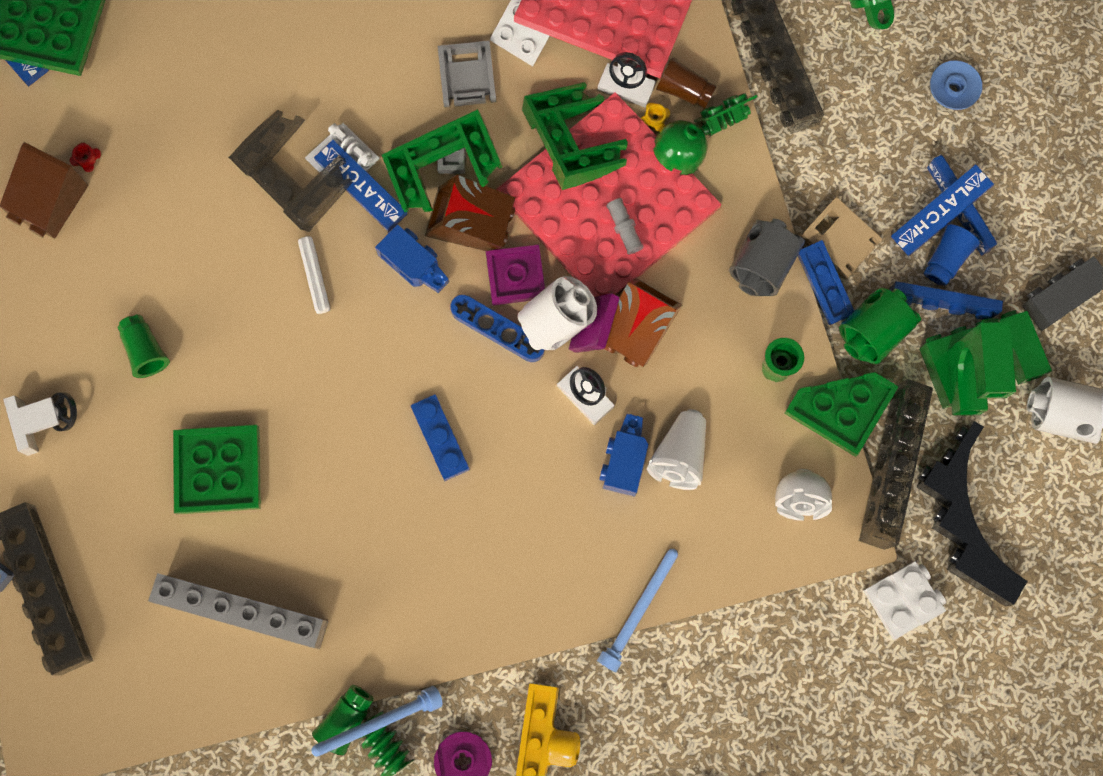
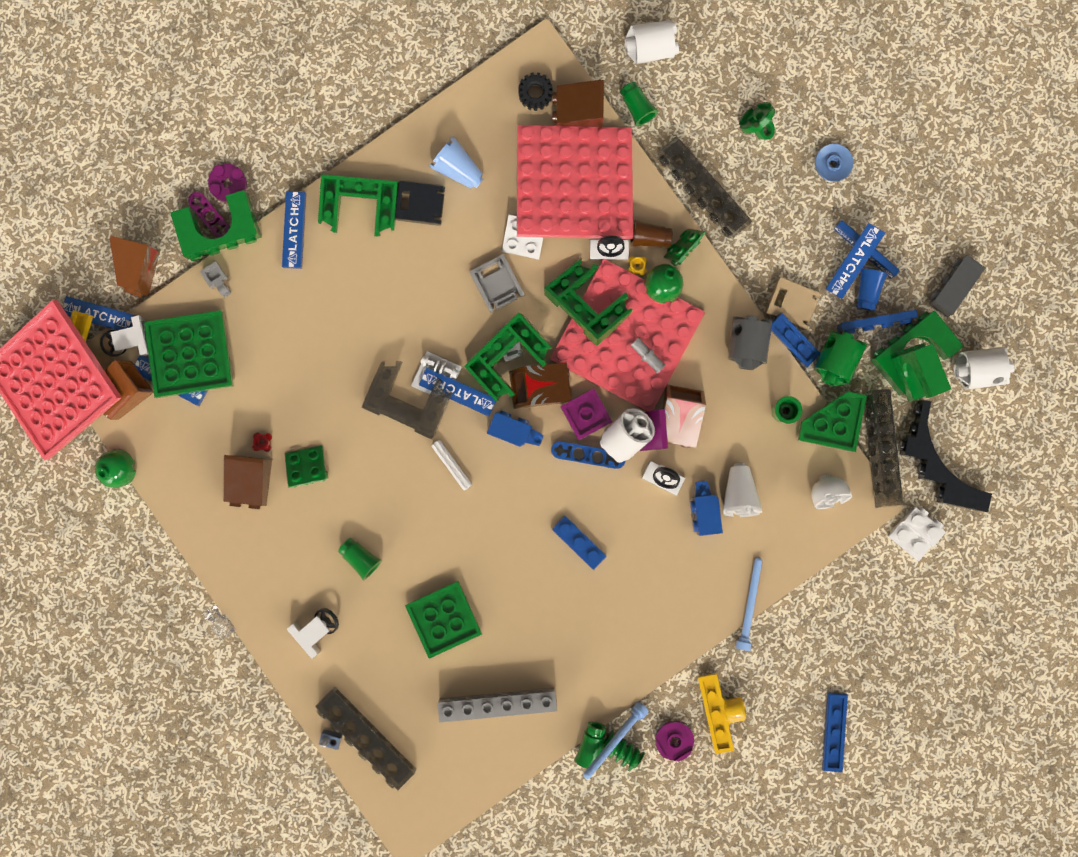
camera: 15 degrees left, 10 degrees up
(125, 208) = (305, 466): none -> green hinge

